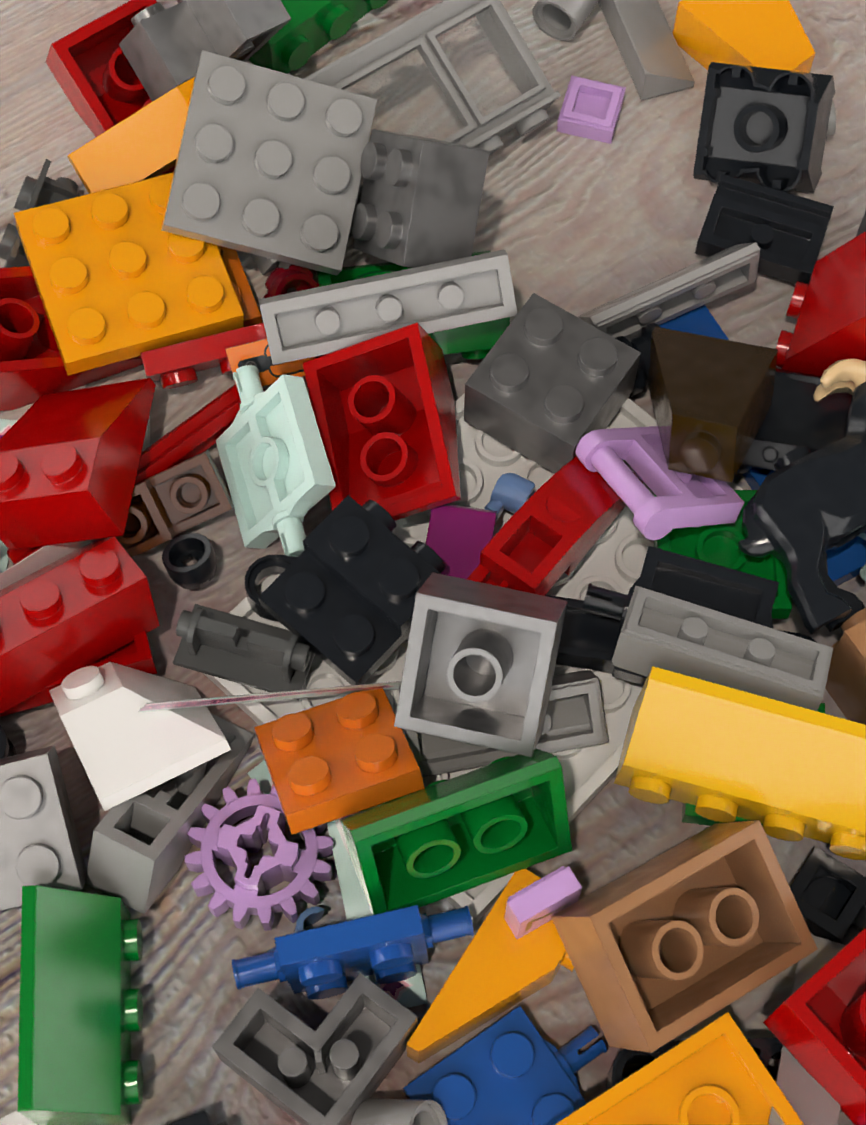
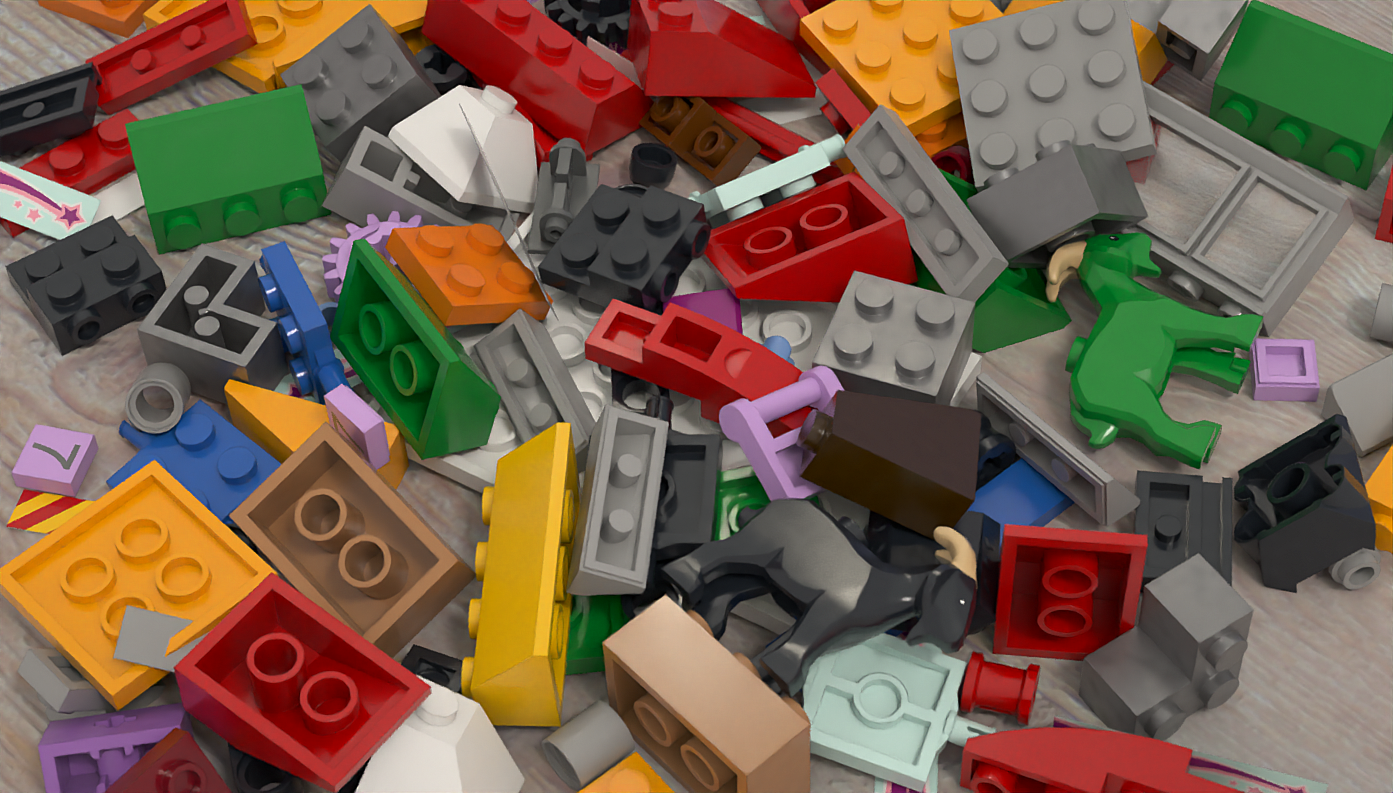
camera: 80 degrees right, 15 degrees down
(480, 663) = (550, 312): flat silver brick -> none
(579, 210) = (1138, 345): none -> green animal

